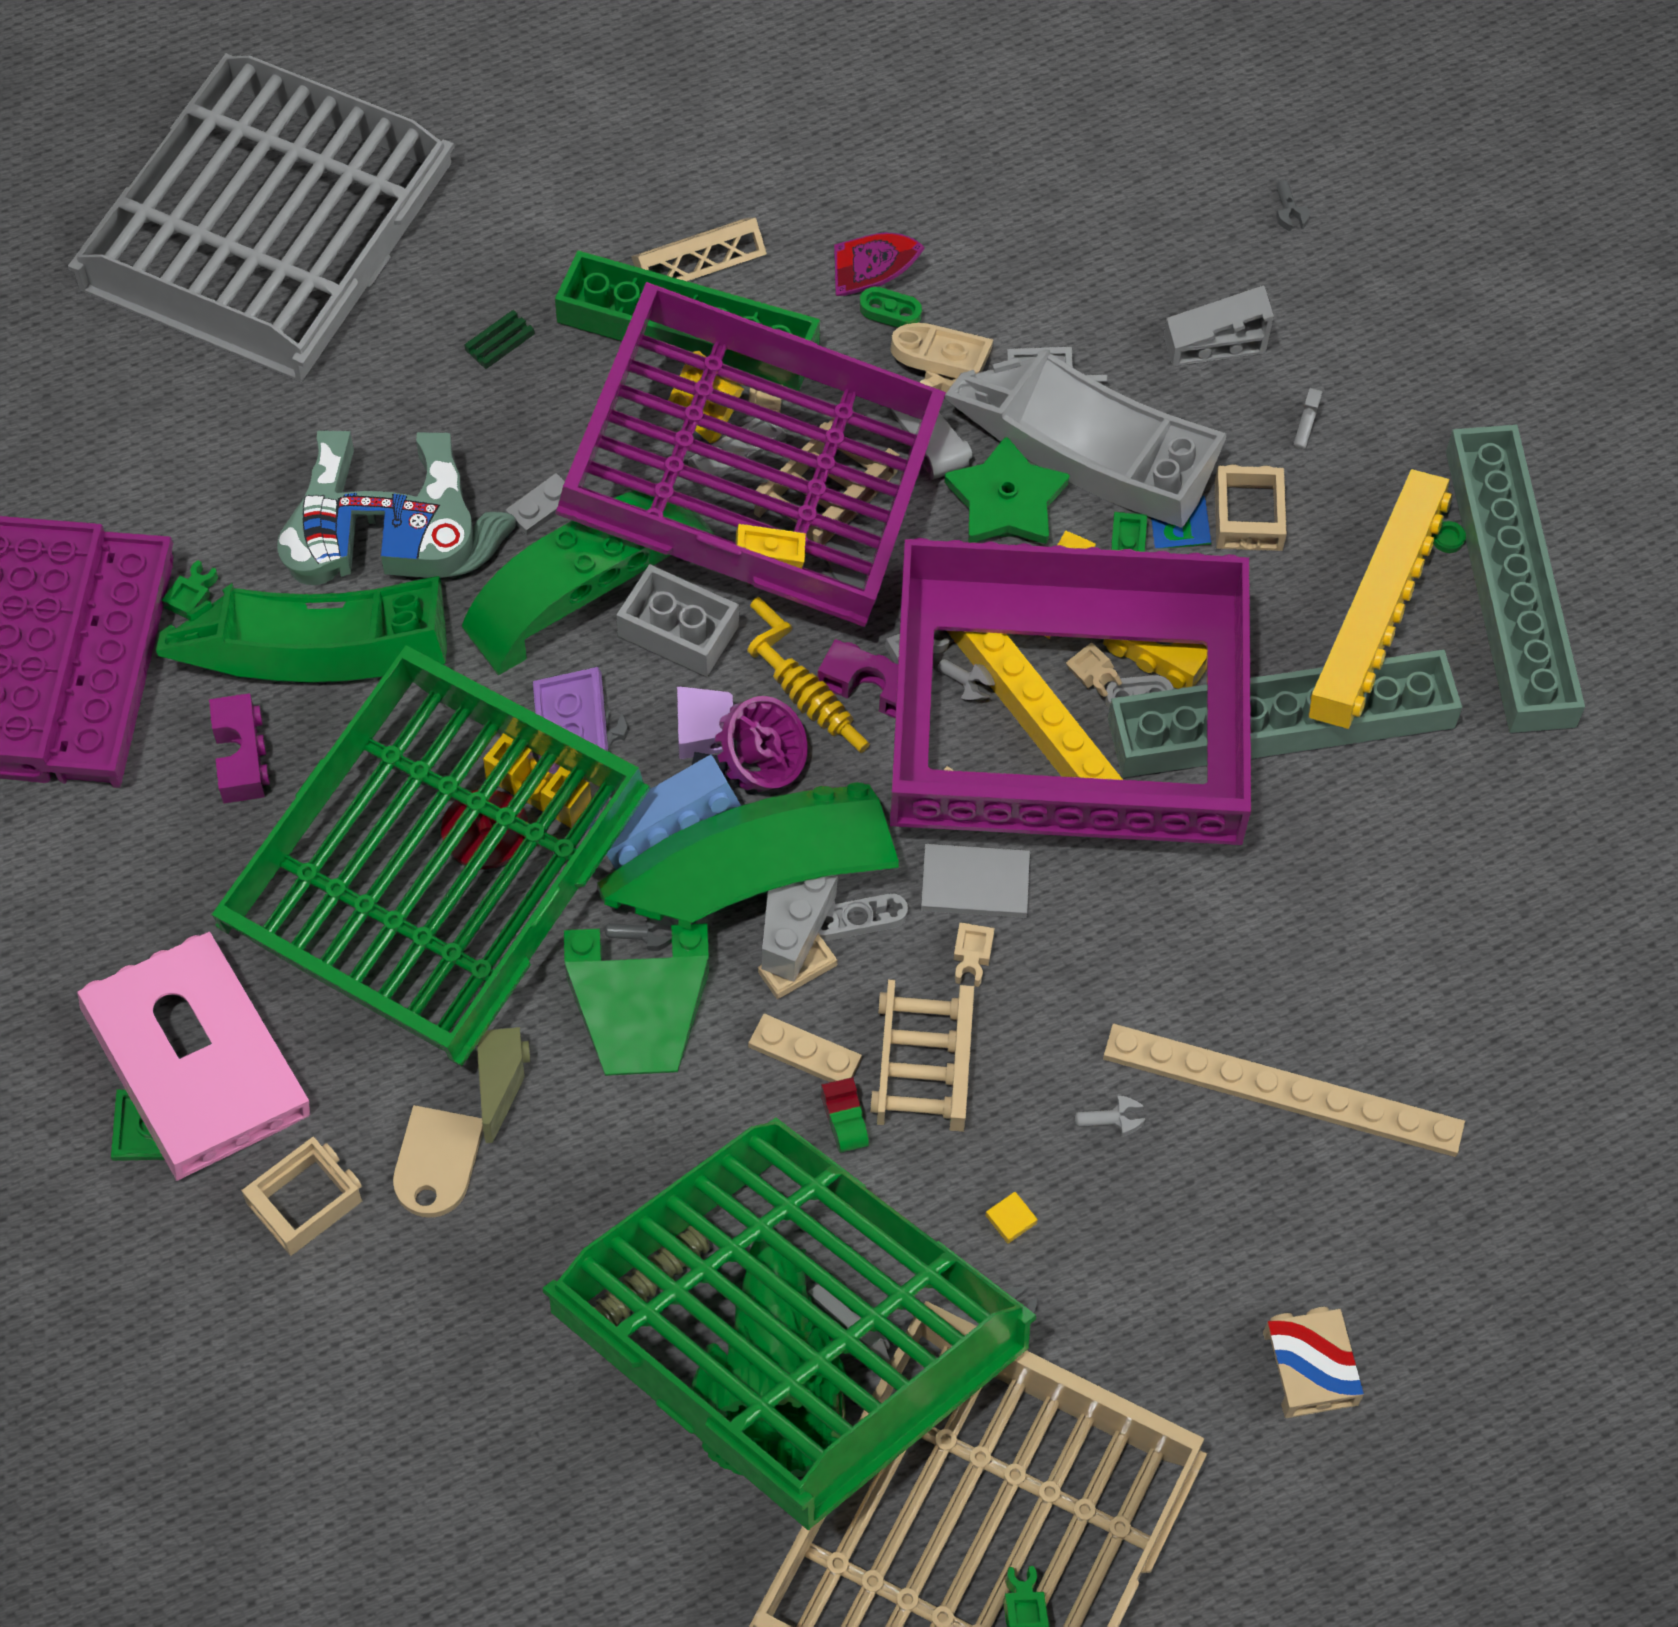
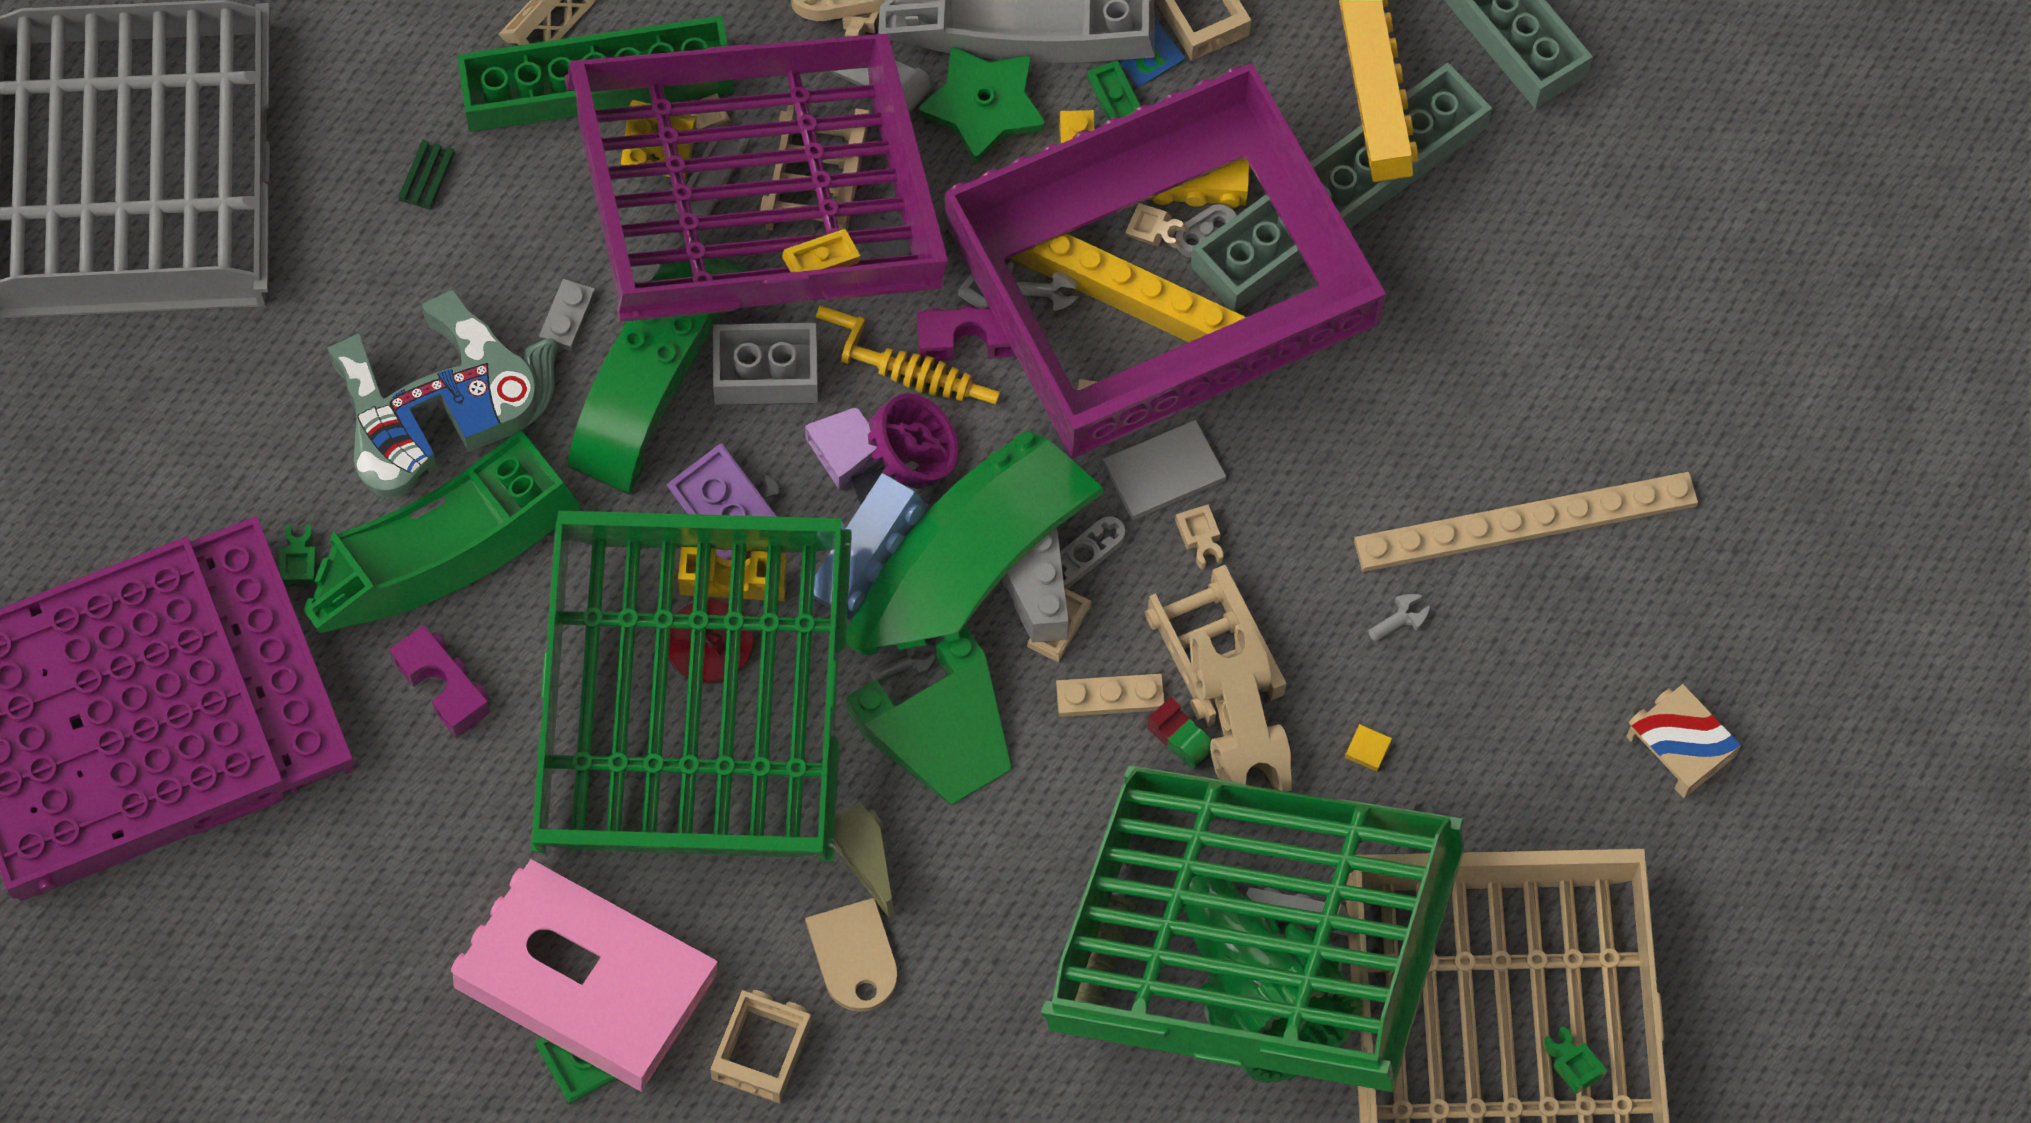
camera: 30 degrees left, 5 degrees up
(913, 1095) = (1235, 689): none -> tan piece

